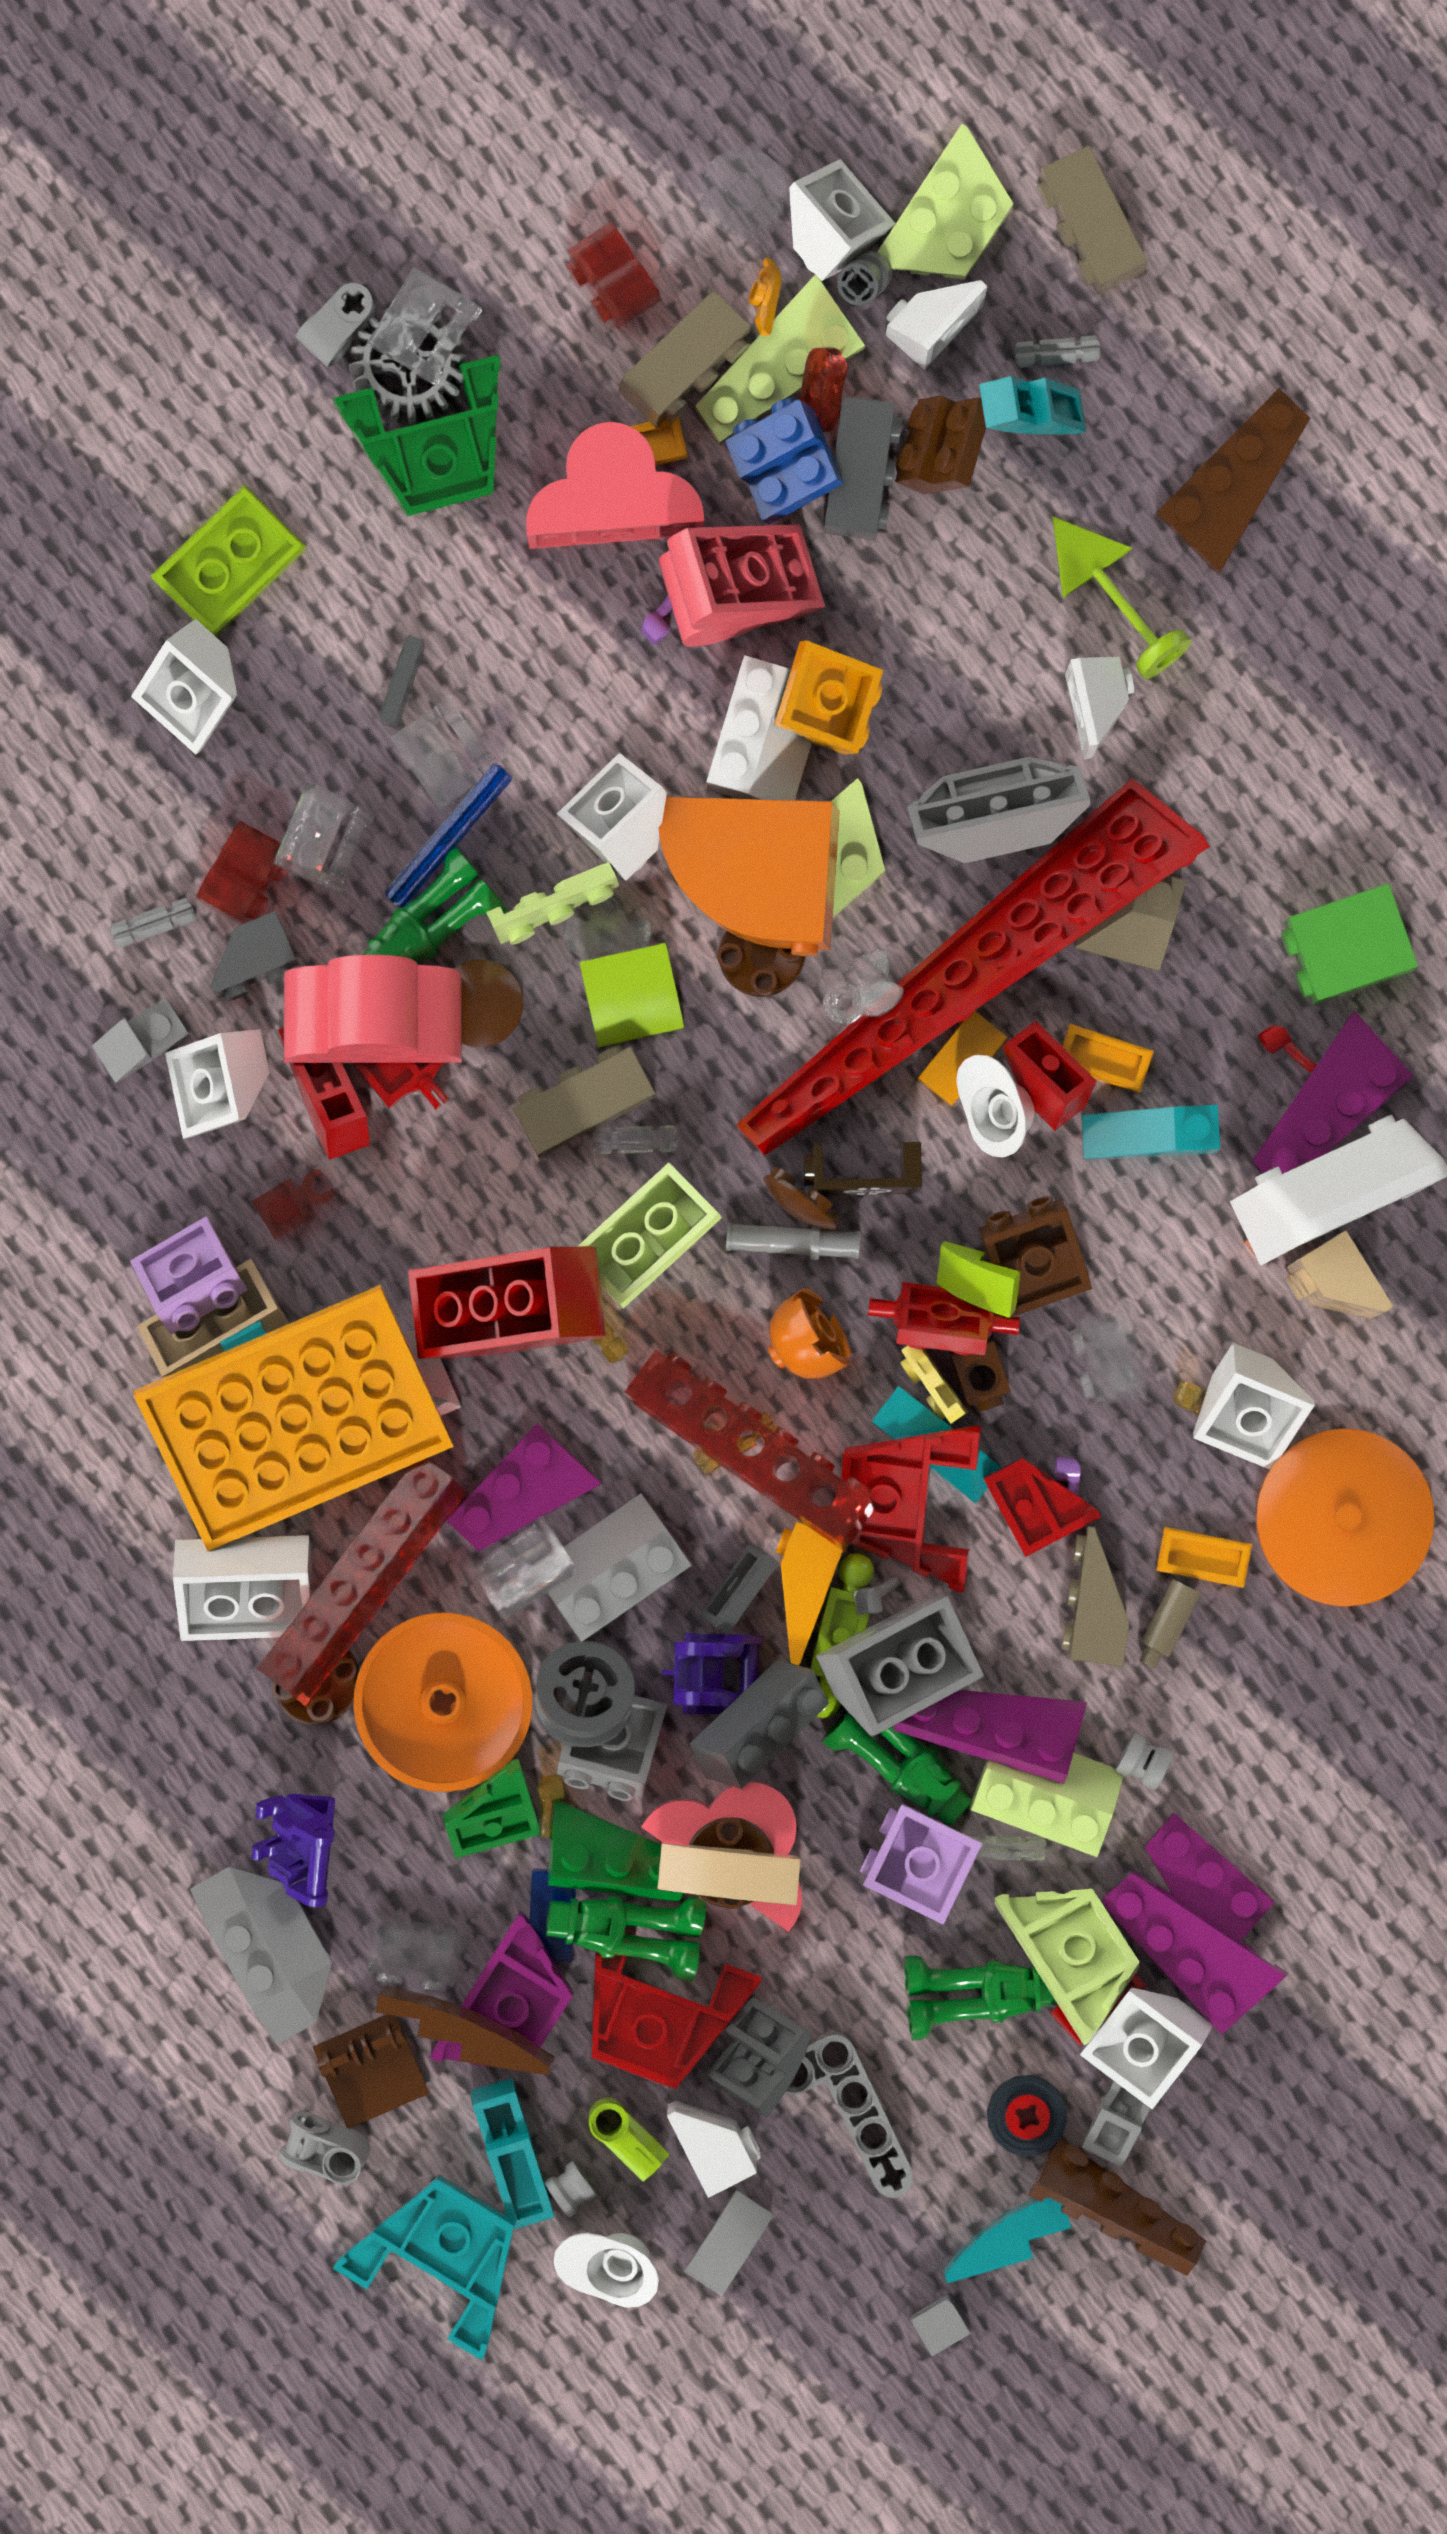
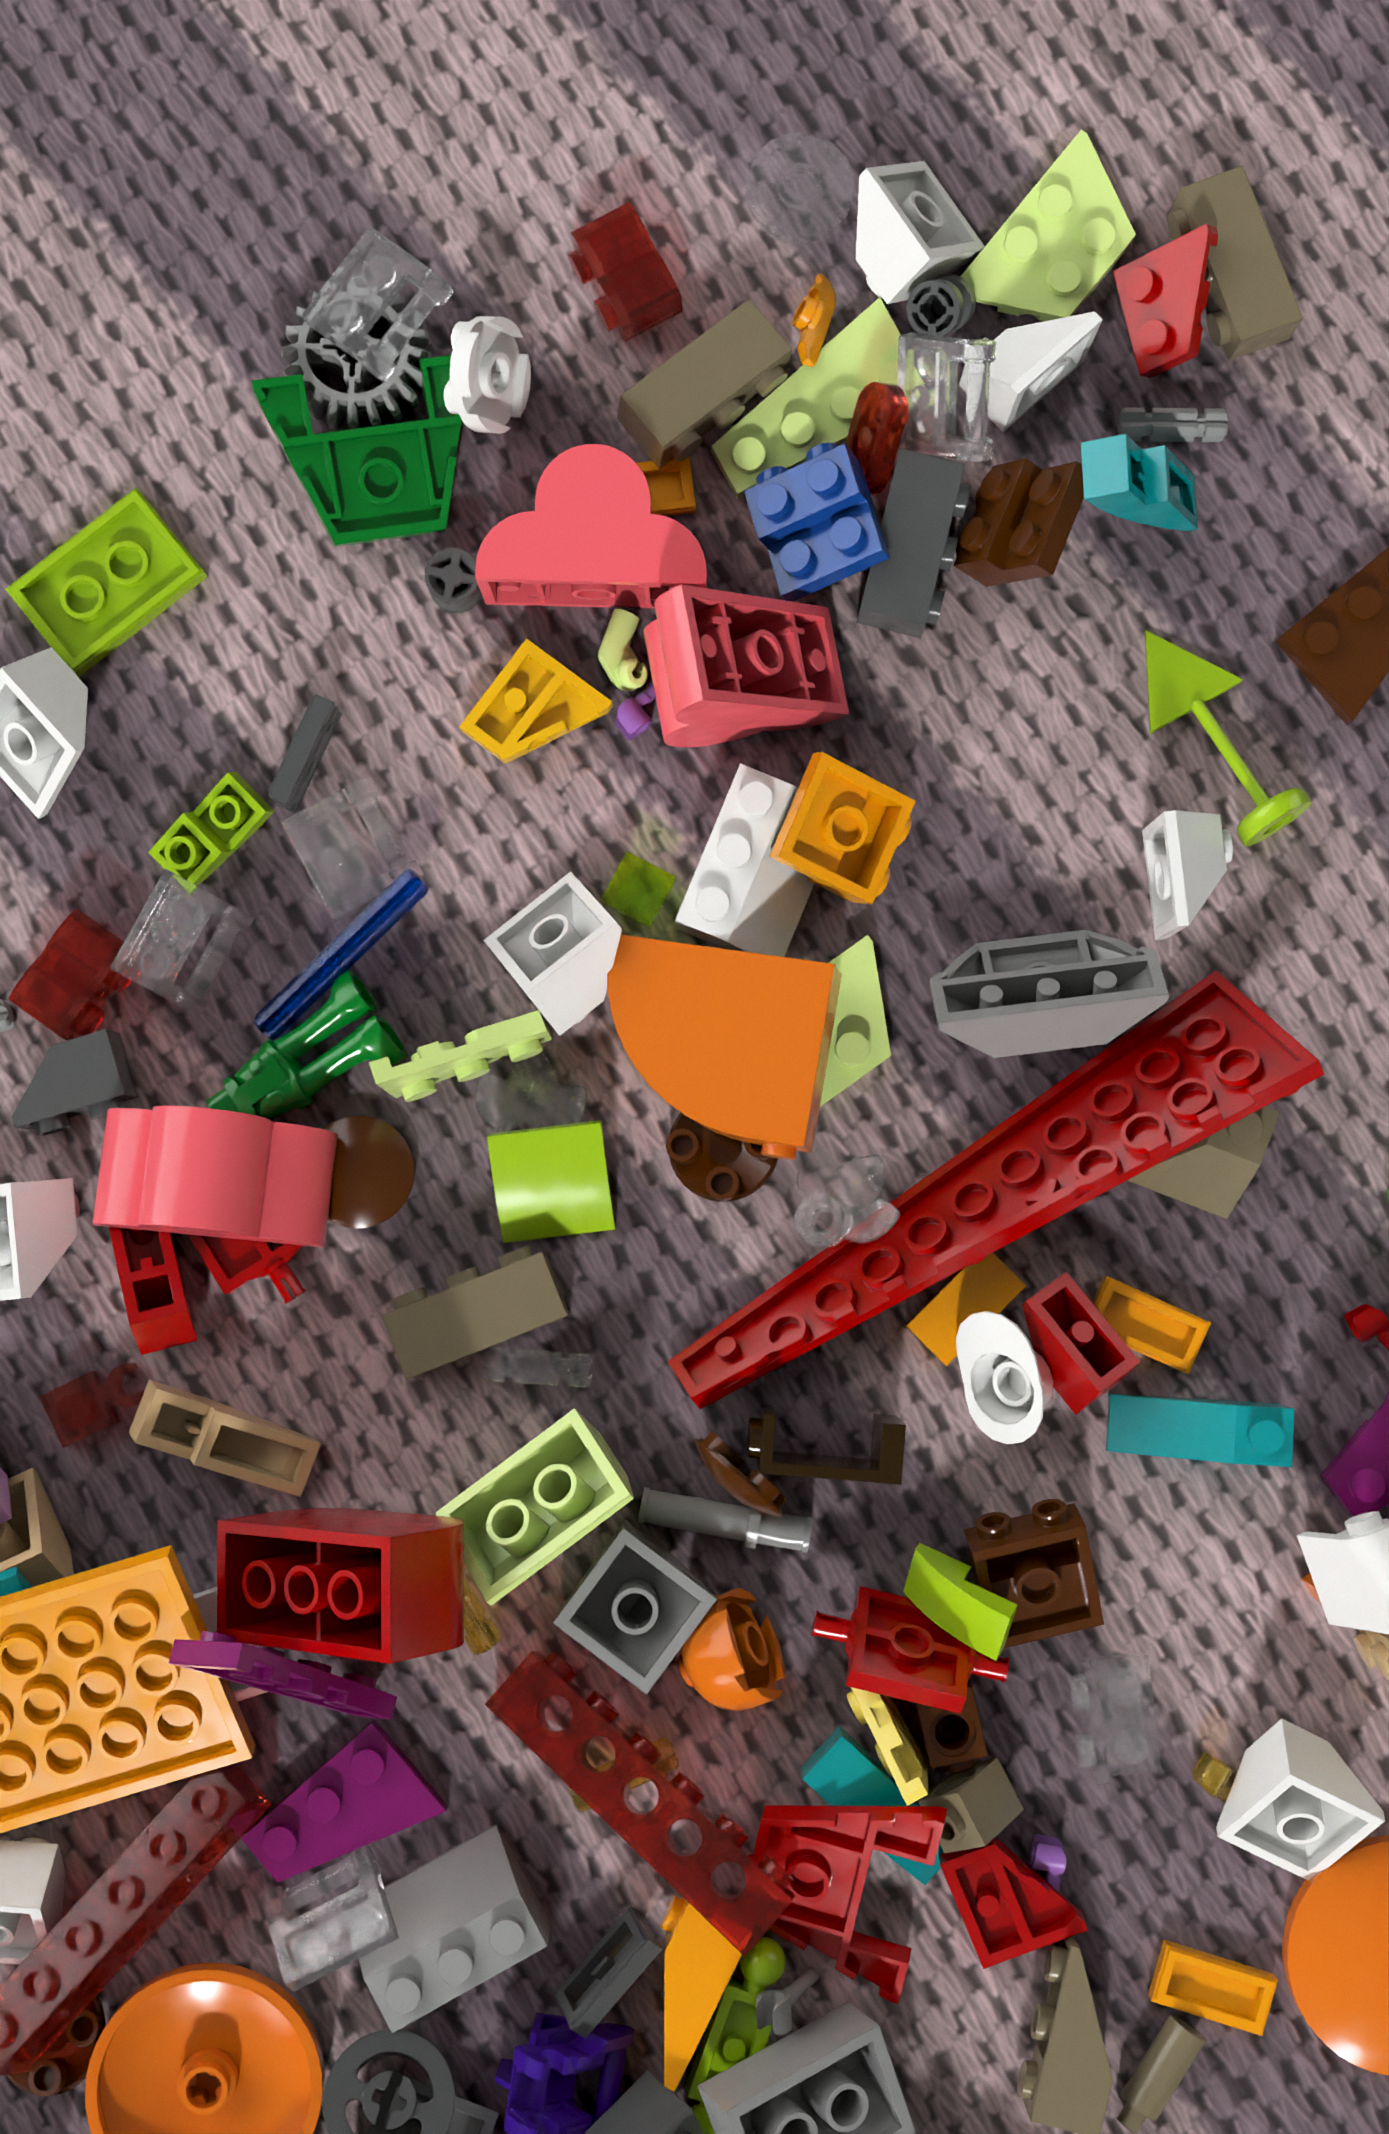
camera: 10 degrees right, 0 degrees up
(332, 330) = (268, 297): light grey piece -> none
(335, 748) = (213, 831): none -> lime slope
(399, 1218) = (223, 1438): none -> tan slope
(473, 1375) = (272, 1672): none -> magenta wing
(504, 524) = (454, 568): none -> dark grey wheel
(514, 370) = (487, 374): none -> white plate
(575, 625) = (532, 705): none -> yellow wing
(638, 579) = (616, 654): none -> yellowish green arm
(674, 761) = (638, 890): none -> clear neon green plate
(730, 1307) = (635, 1607): none -> light grey slope
(861, 345) = (930, 385): none -> clear plate
(1006, 1431) = (977, 1805): none -> dark tan brick
(1041, 256) = (1165, 300): none -> wing

